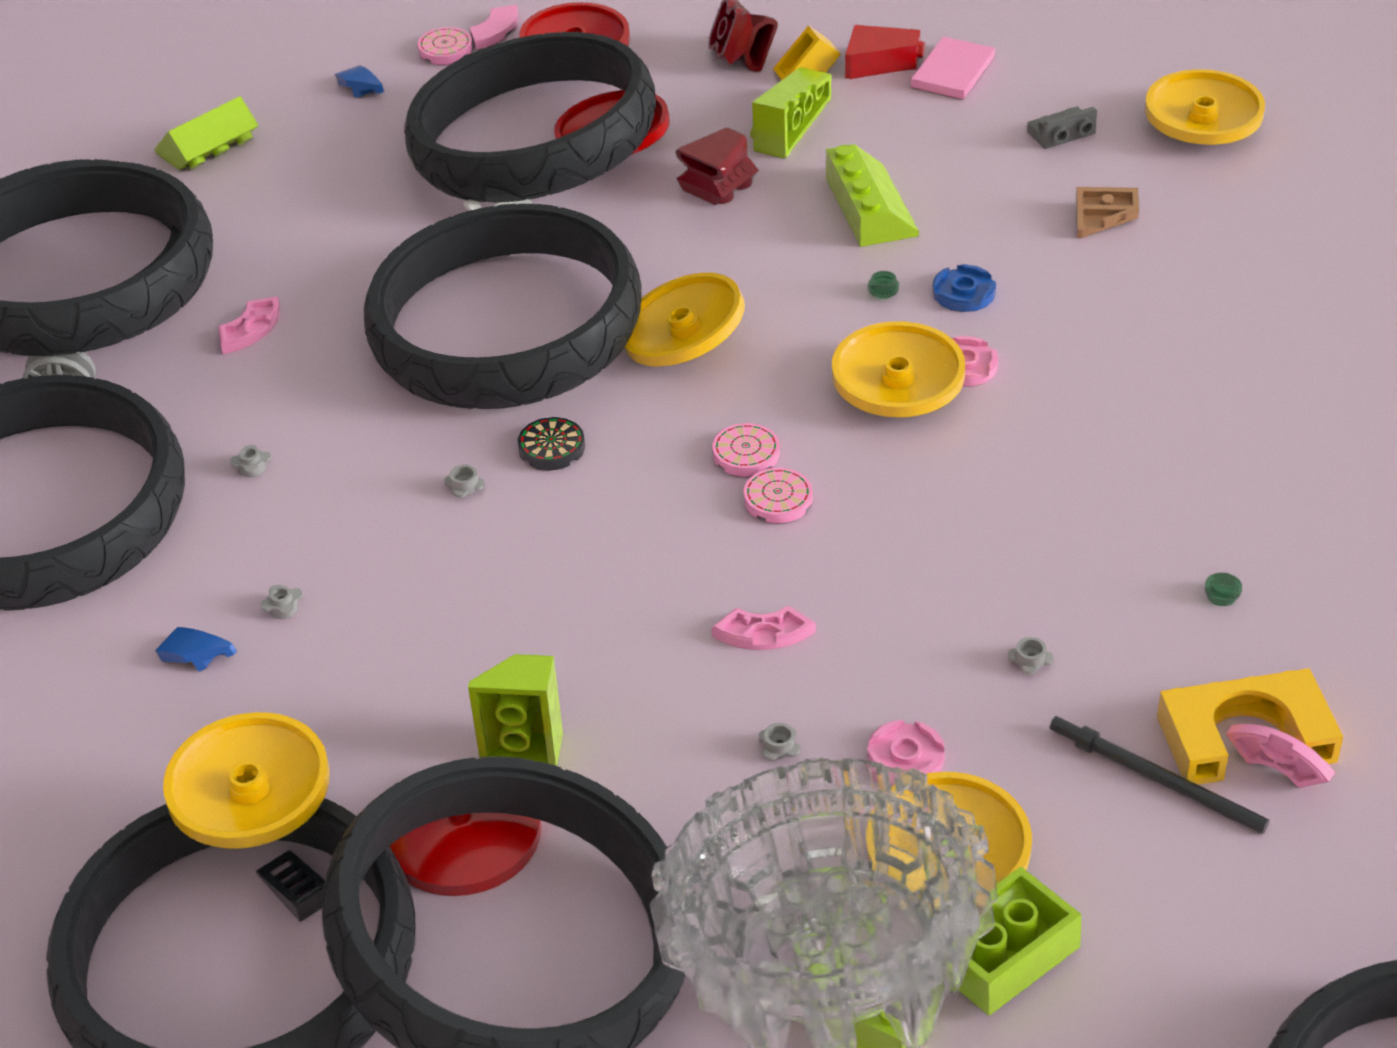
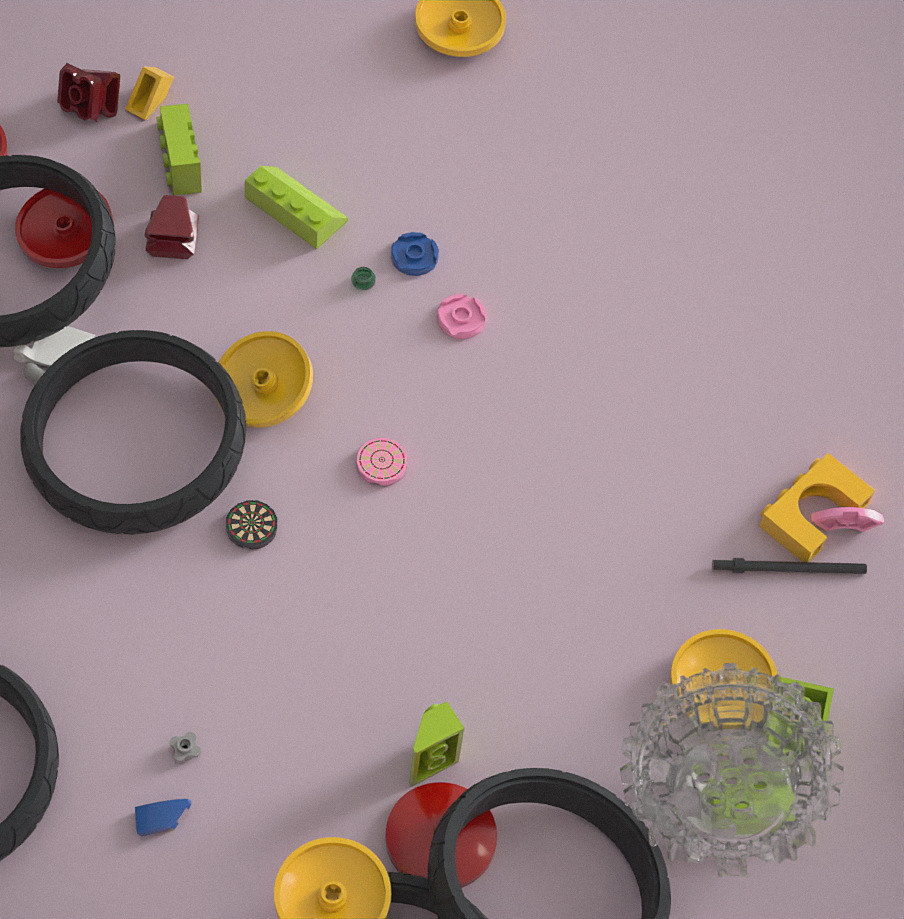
camera: 45 degrees left, 15 degrees up
(250, 461) = (58, 658): light grey plate -> none
(464, 480) = (221, 580): light grey plate -> none
(763, 630) = (500, 594): bright pink tile -> none
(778, 495) = (430, 487): bright pink tile -> none
(779, 741) = (575, 661): light grey plate -> none
(882, 50) = (196, 59): red slope -> none
(898, 369) = (435, 349): yellow dish -> none
(907, 747) = (648, 632): bright pink tile -> none
(953, 67) = (256, 51): bright pink tile -> none
(1030, 655) = (670, 519): light grey plate -> none
(1063, 126) = (373, 76): dark grey bracket -> none
(1104, 208) = (455, 141): medium nougat wing -> none
(1223, 588) = (735, 415): clear green plate -> none

